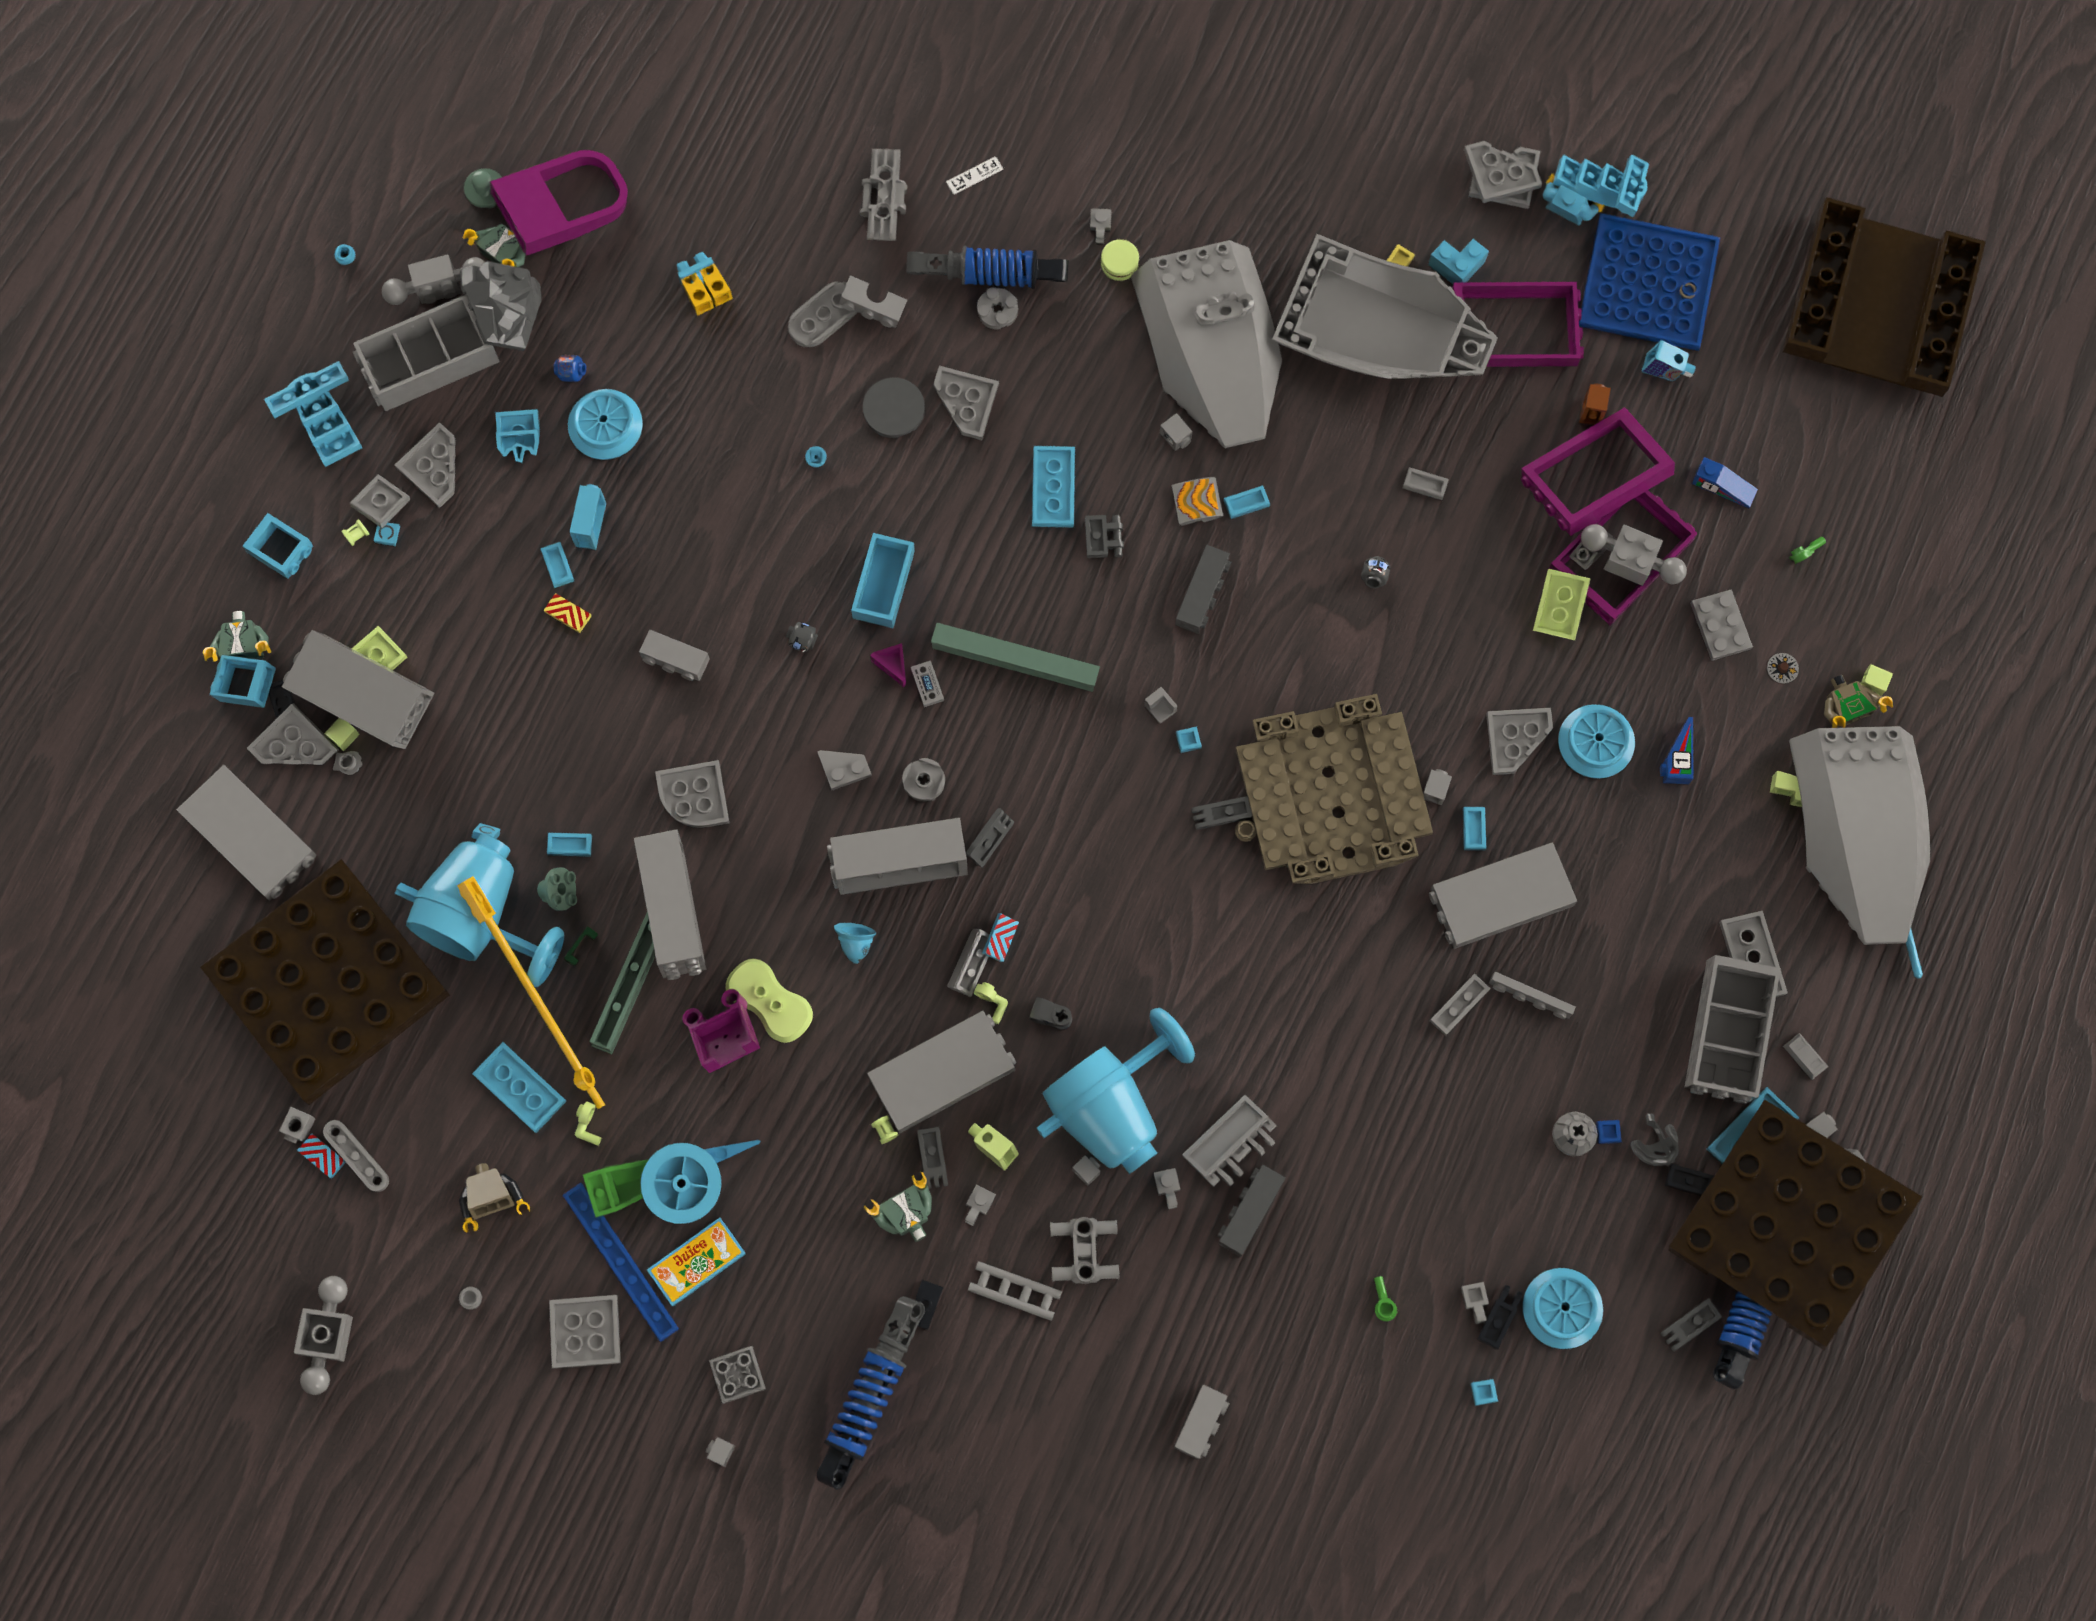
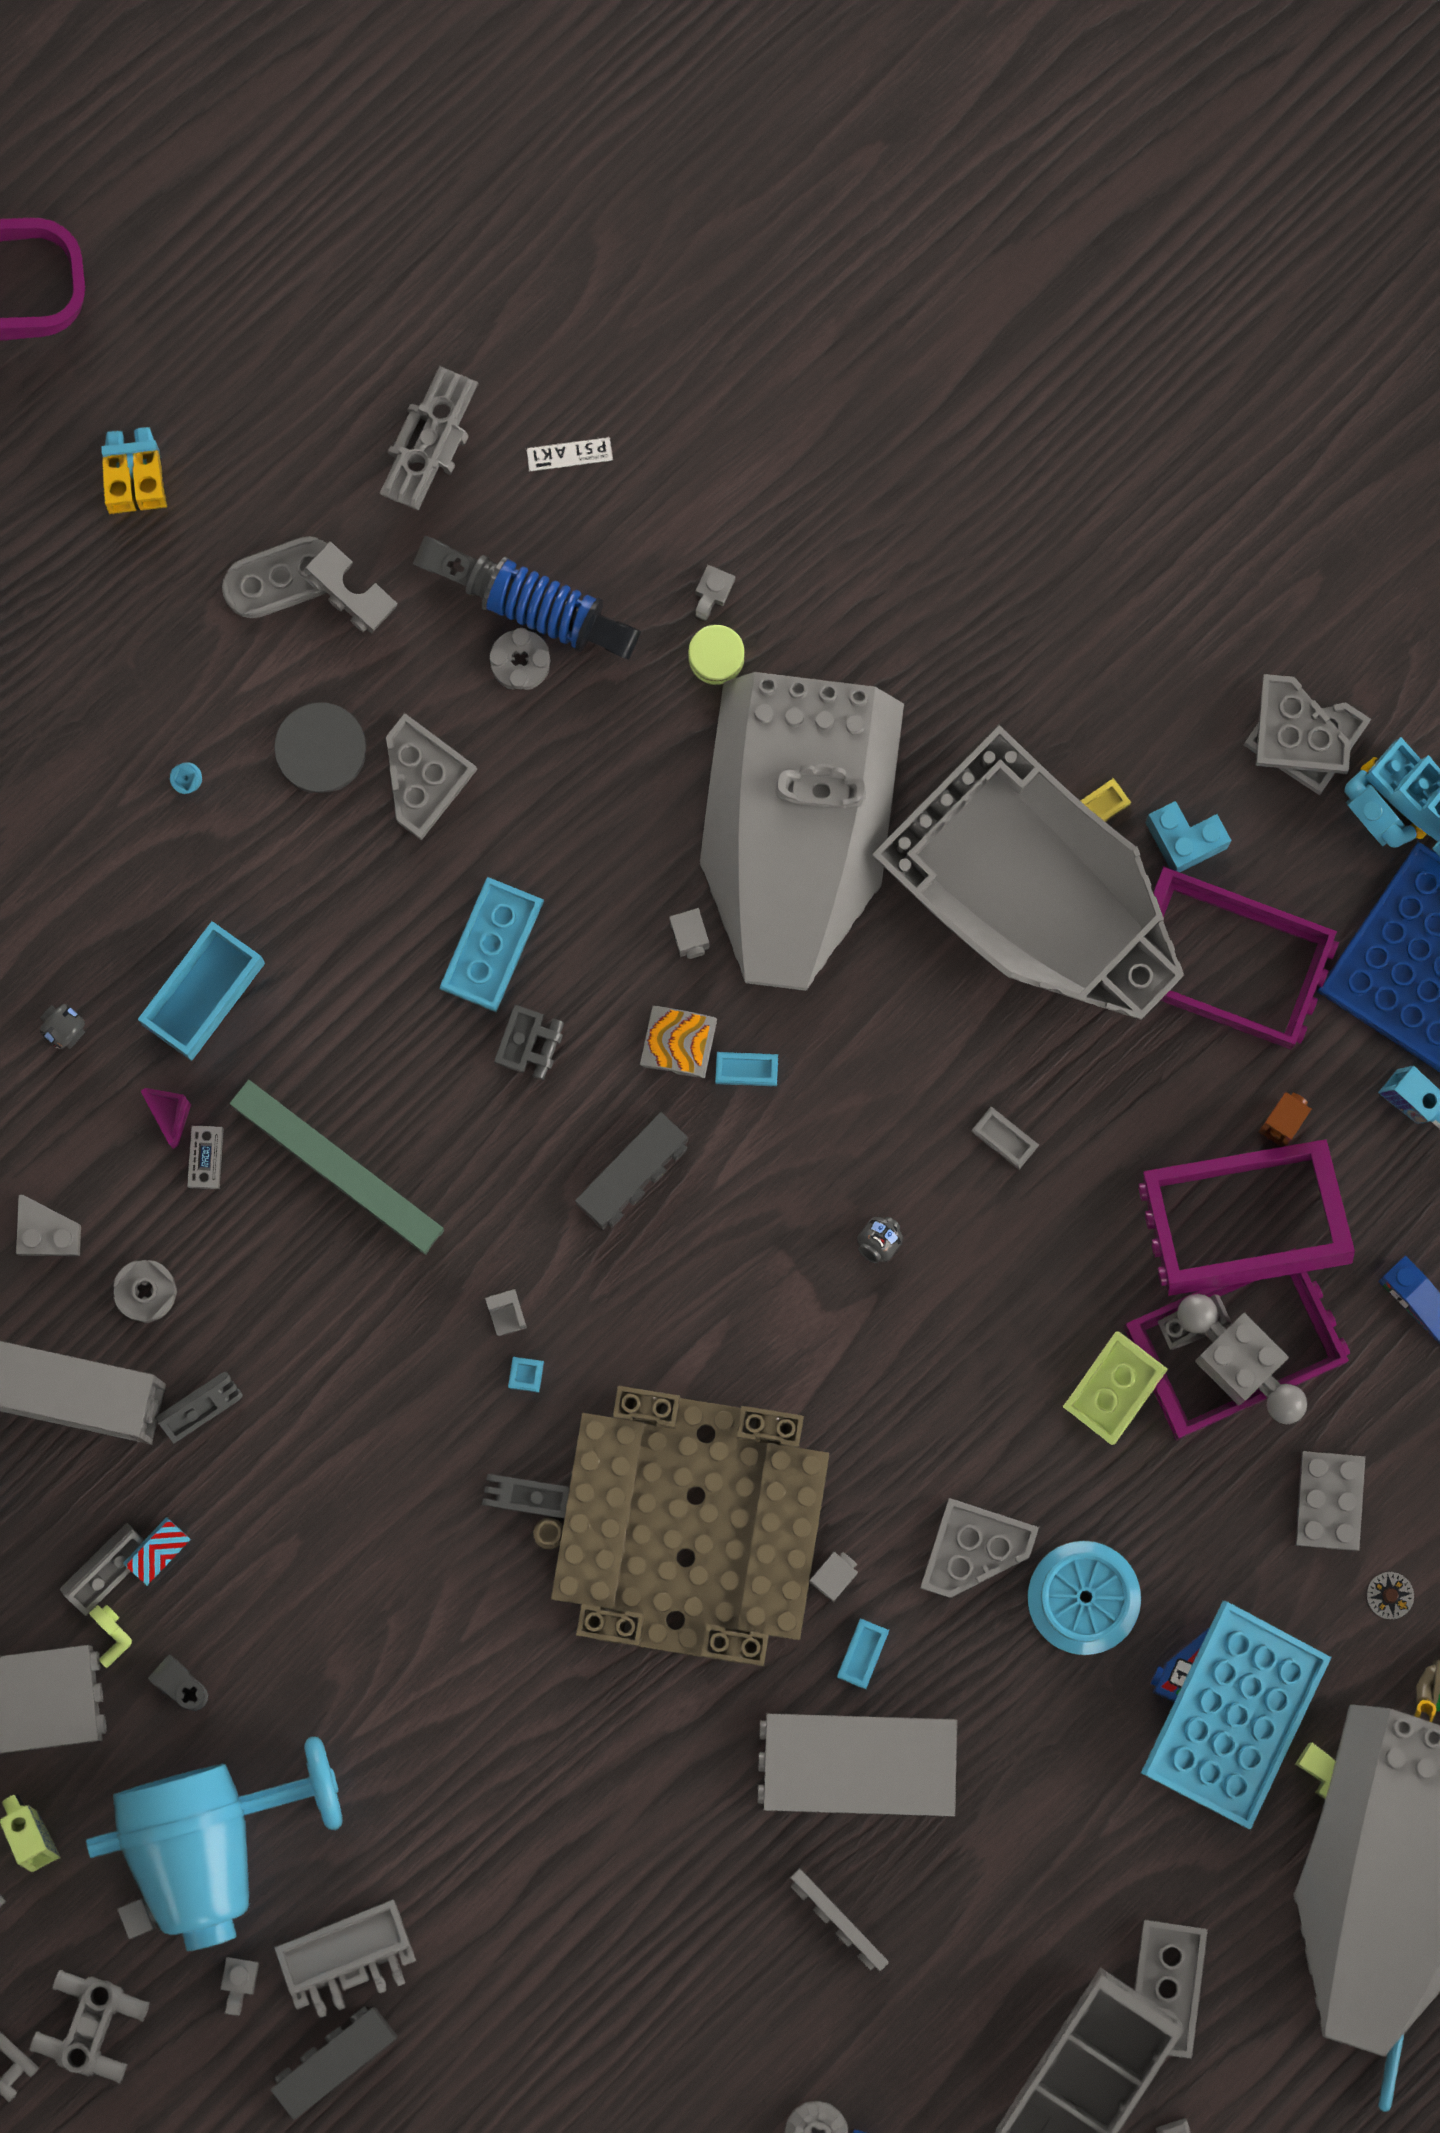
camera: 25 degrees right, 5 degrees up
(1460, 1004) = (736, 1892): light grey plate -> none
(1723, 772) = (1236, 1715): none -> medium azure plate

